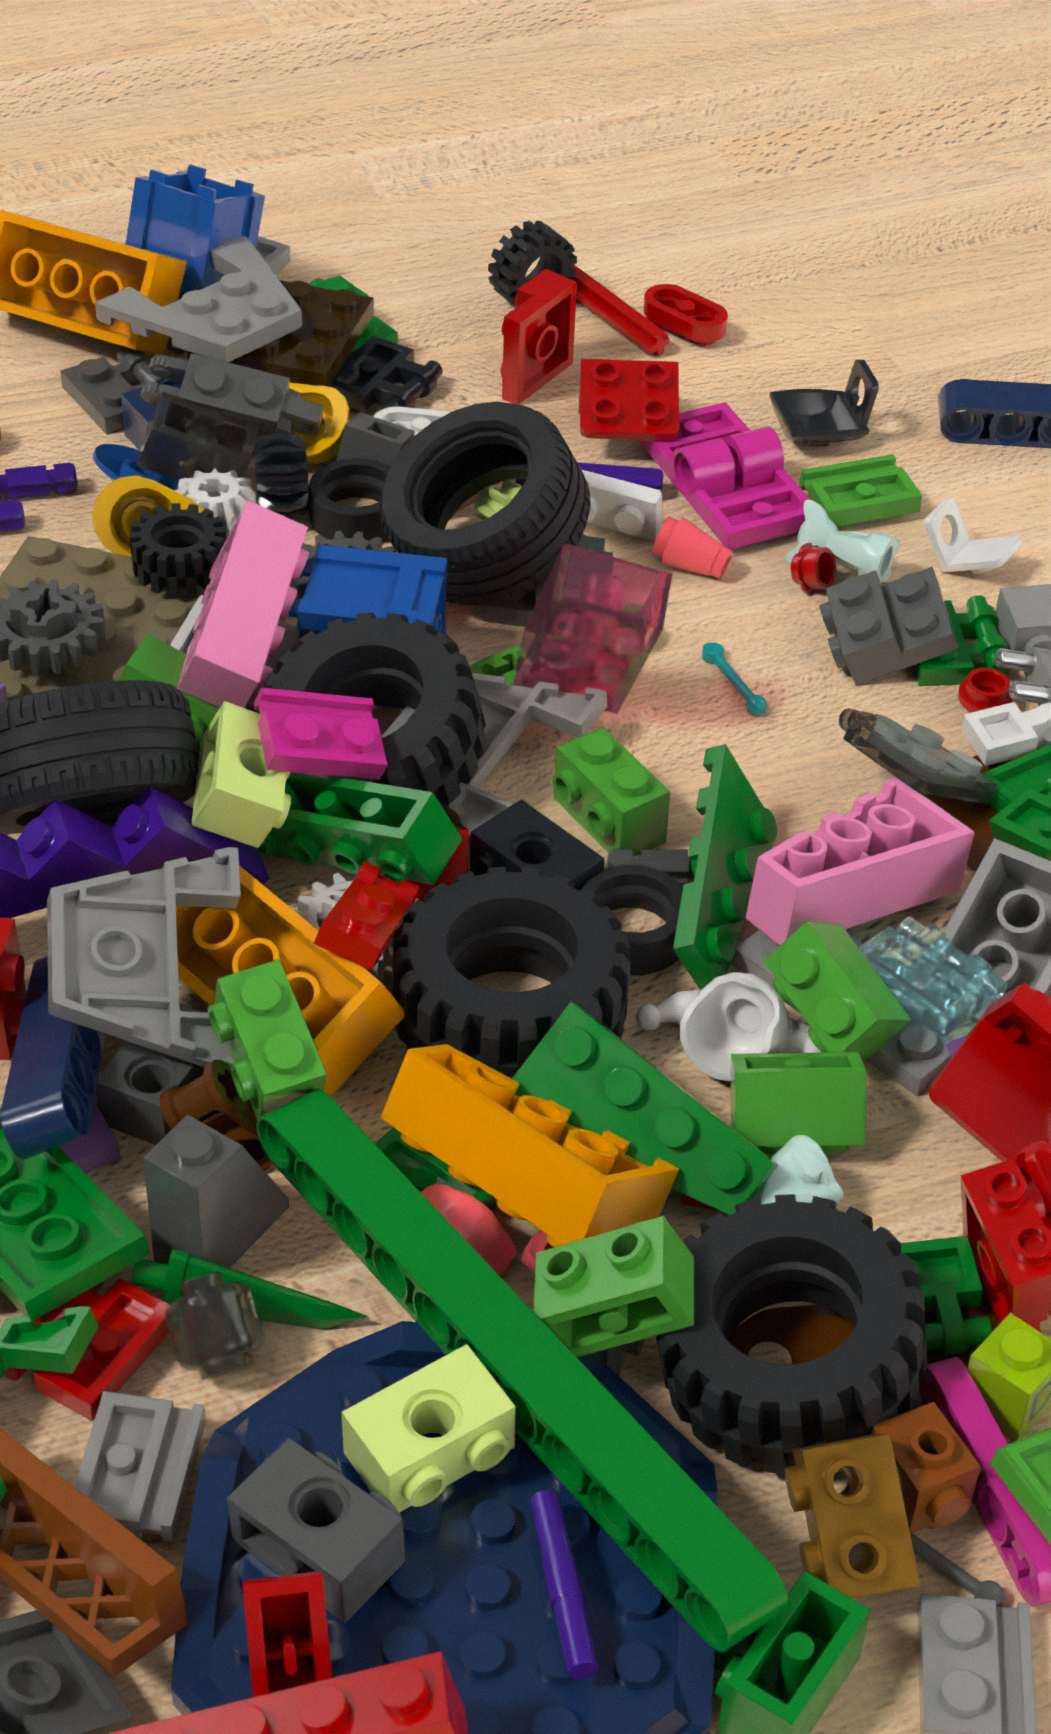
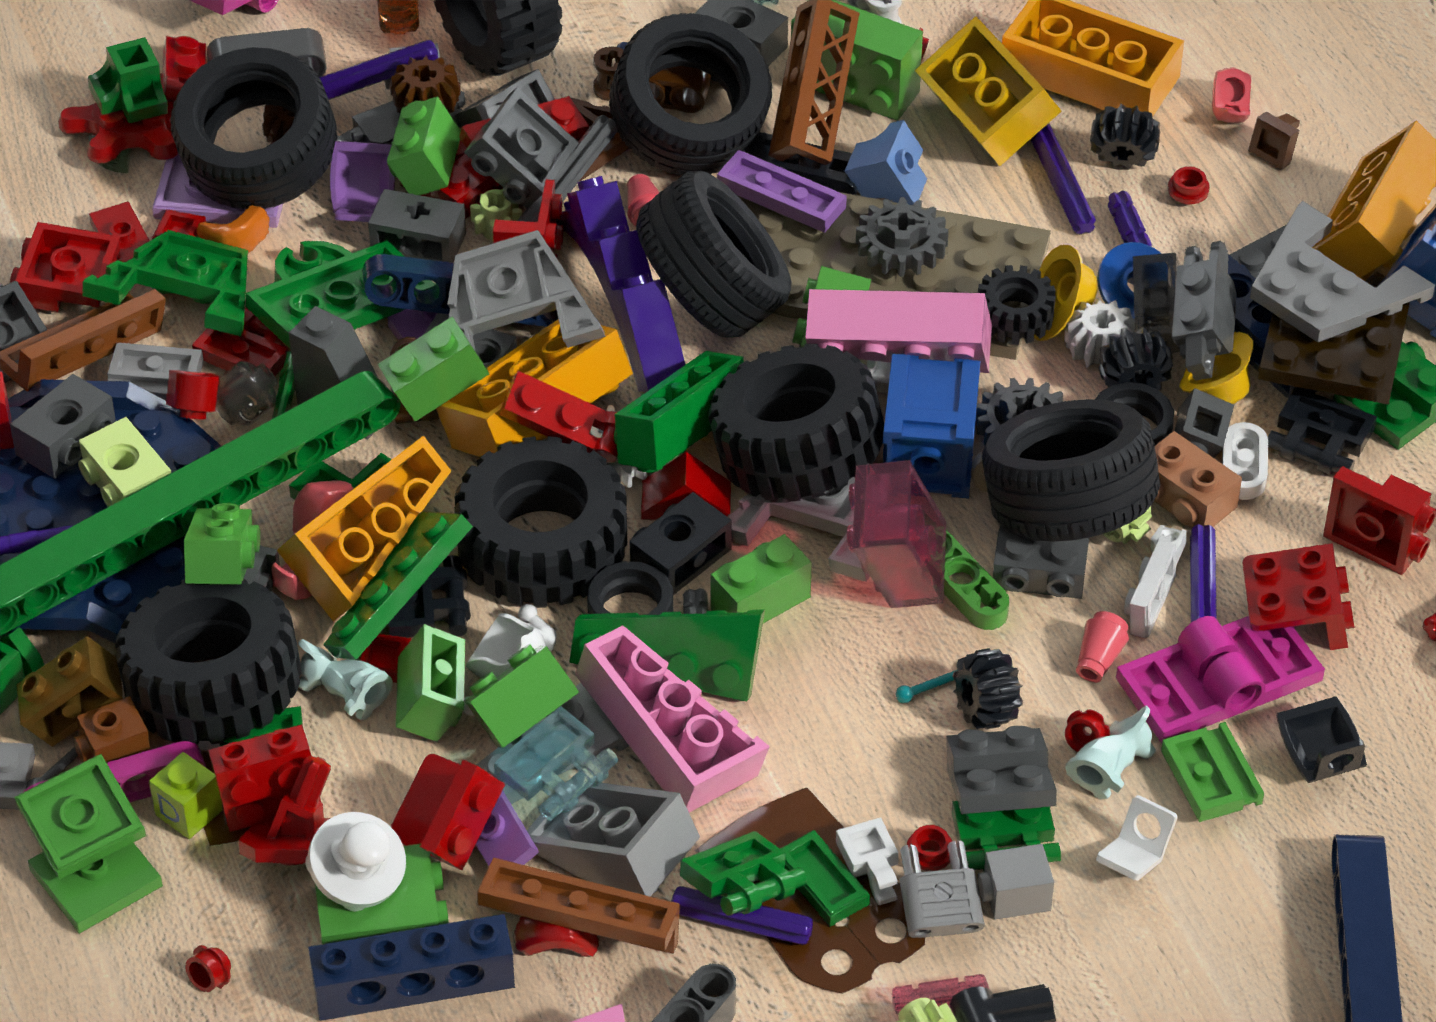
camera: 90 degrees right, 5 degrees up
(229, 1374) = (192, 393): none -> red plate
(233, 785) = (668, 321): yellowish green brick -> none
(320, 734) = (723, 362): dark pink plate -> none
(777, 617) = (987, 688): none -> black gear
(917, 757) = (812, 775): clear smoke piece -> none

